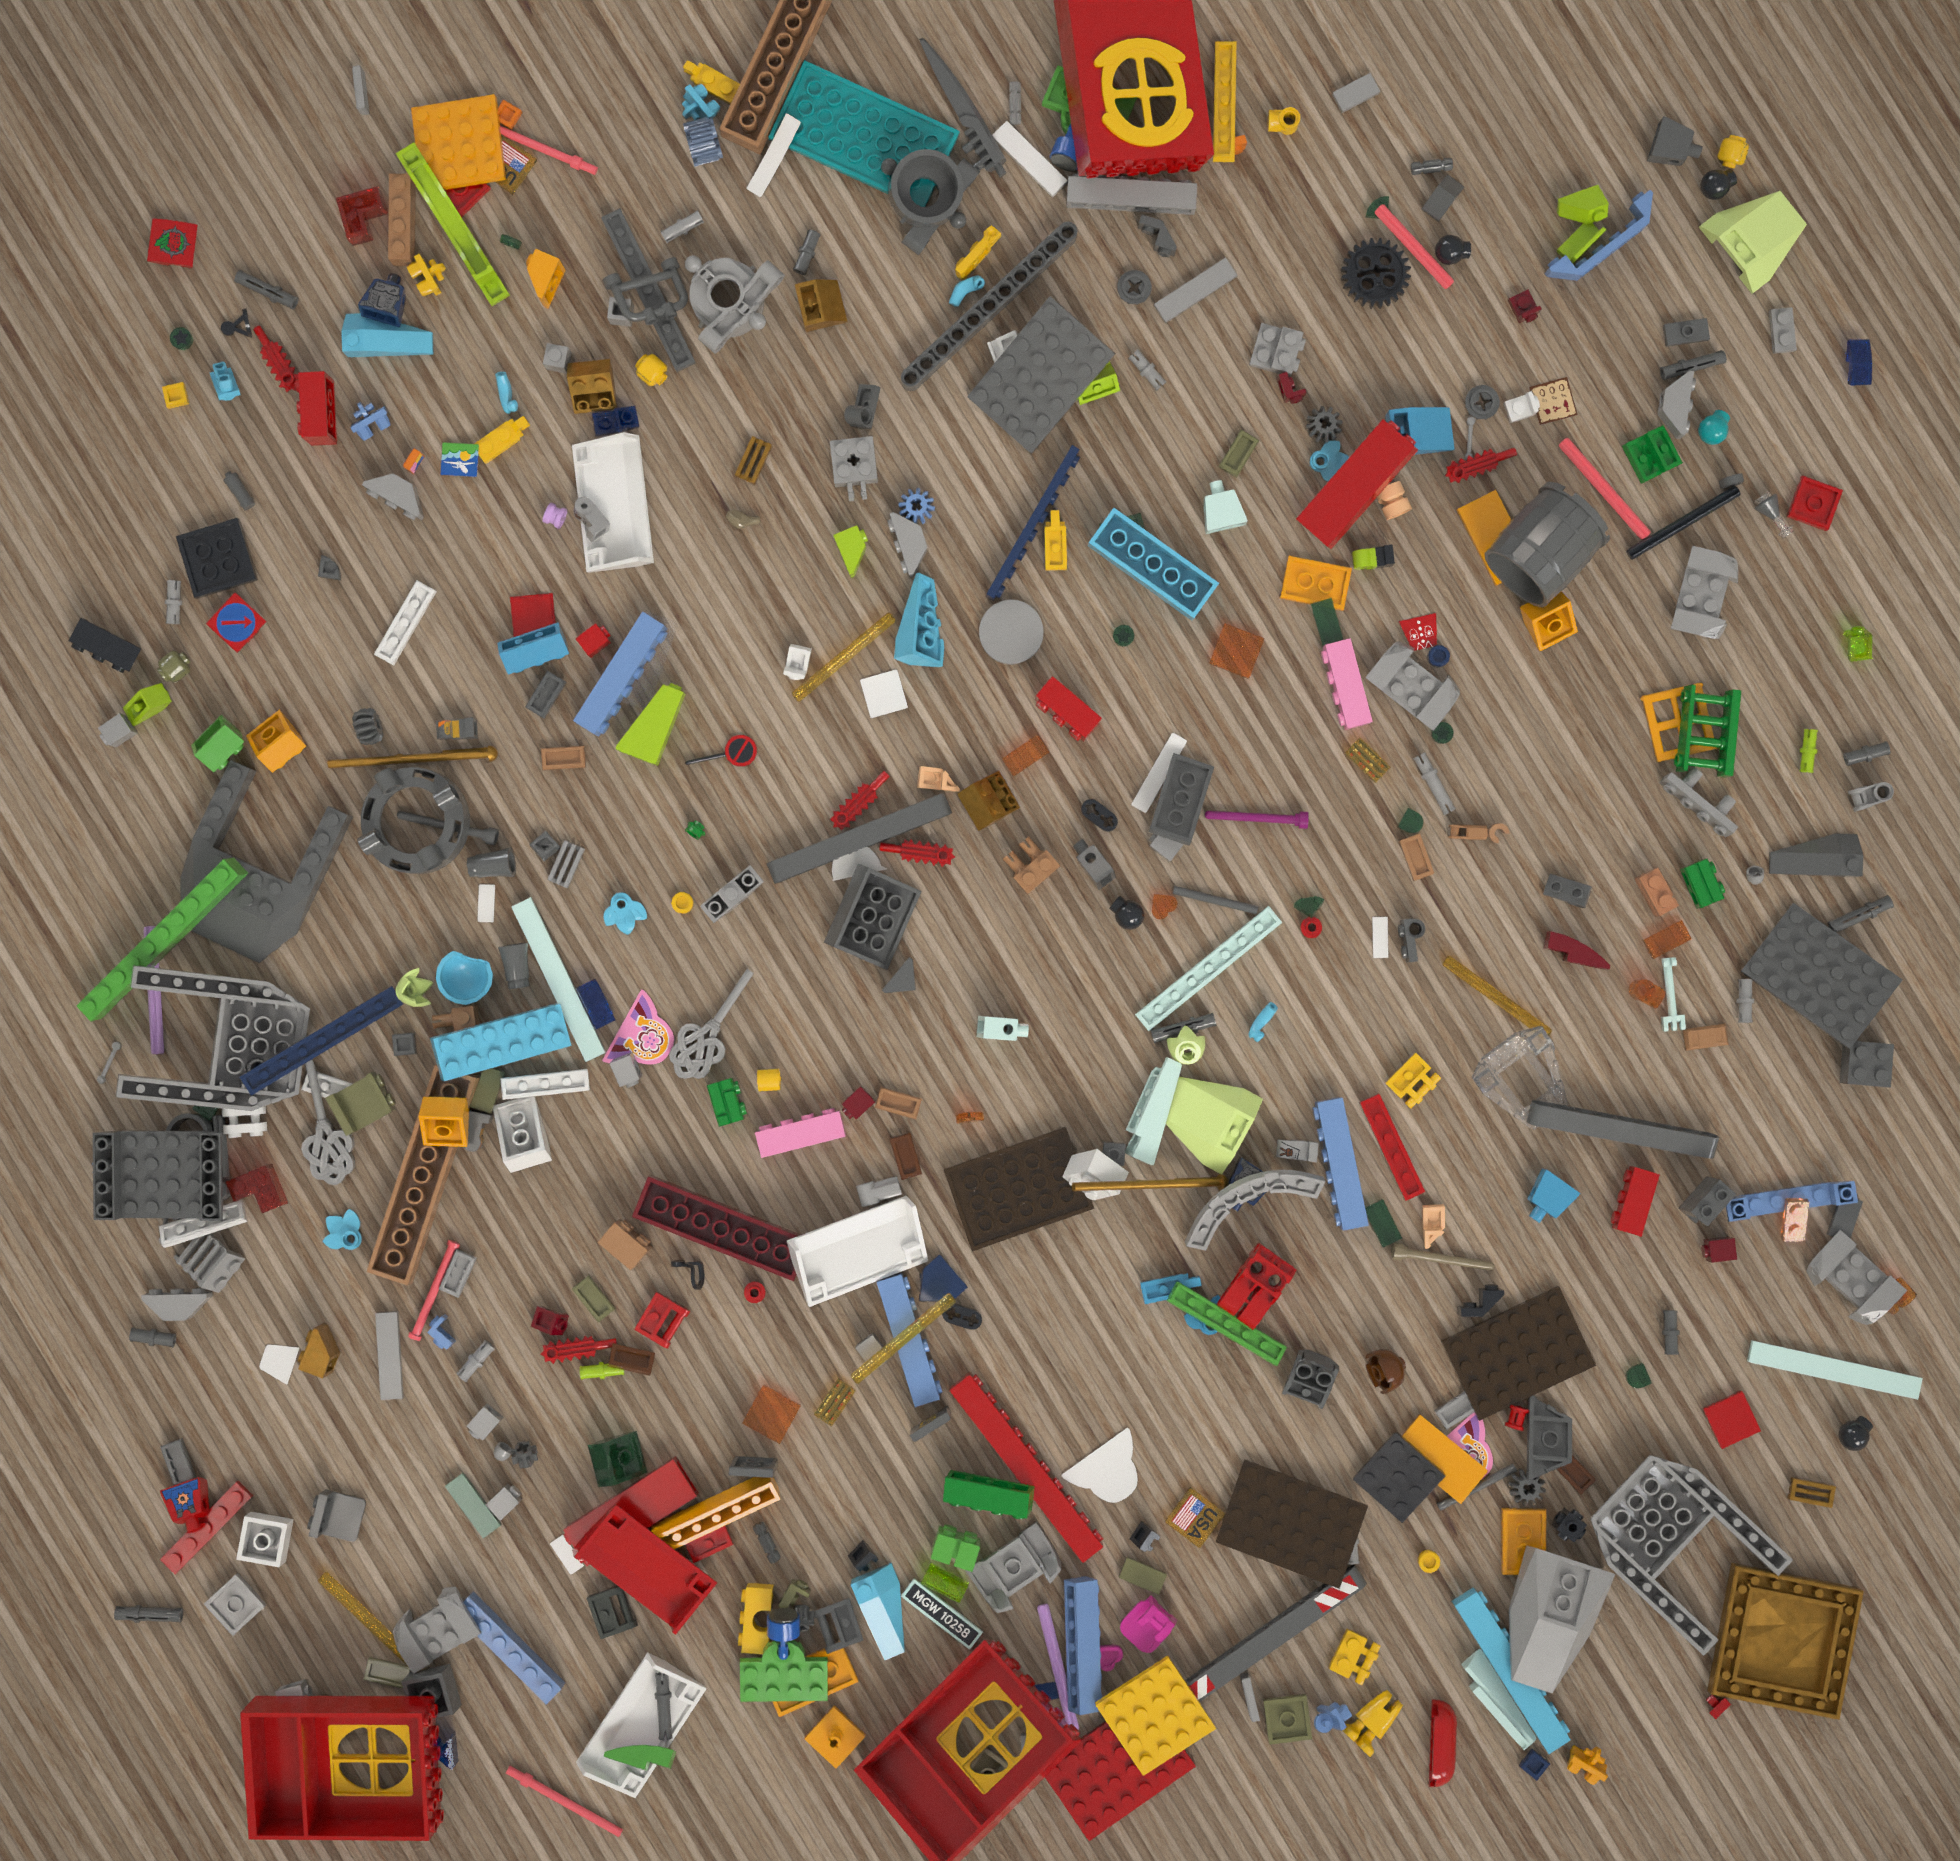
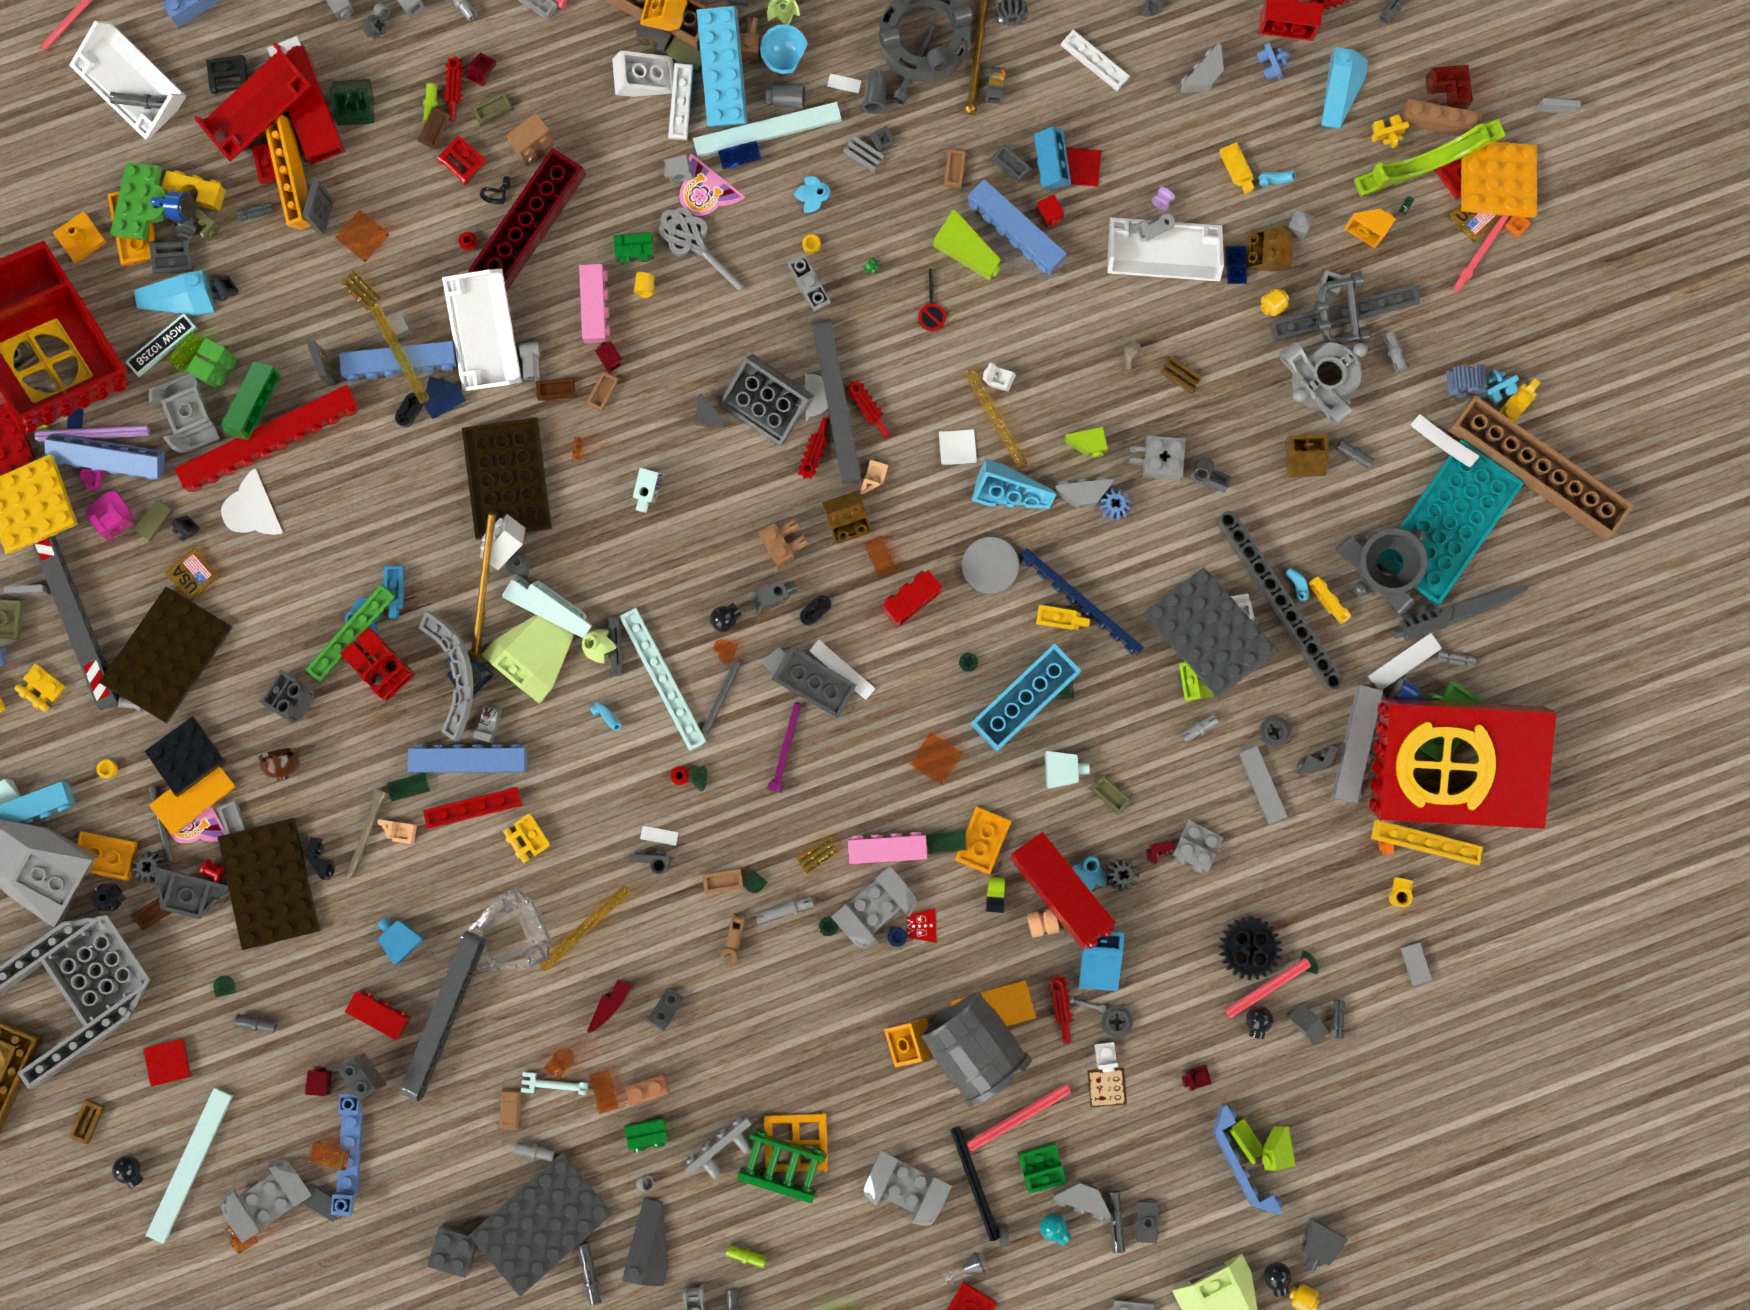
camera: 100 degrees right, 5 degrees down
(384, 301) = (1373, 91): torso -> none
(413, 461) = (1231, 91): orange tile -> none
(459, 459) = (1226, 130): sticker -> none
(642, 1755) = (100, 74): bright green slope -> none

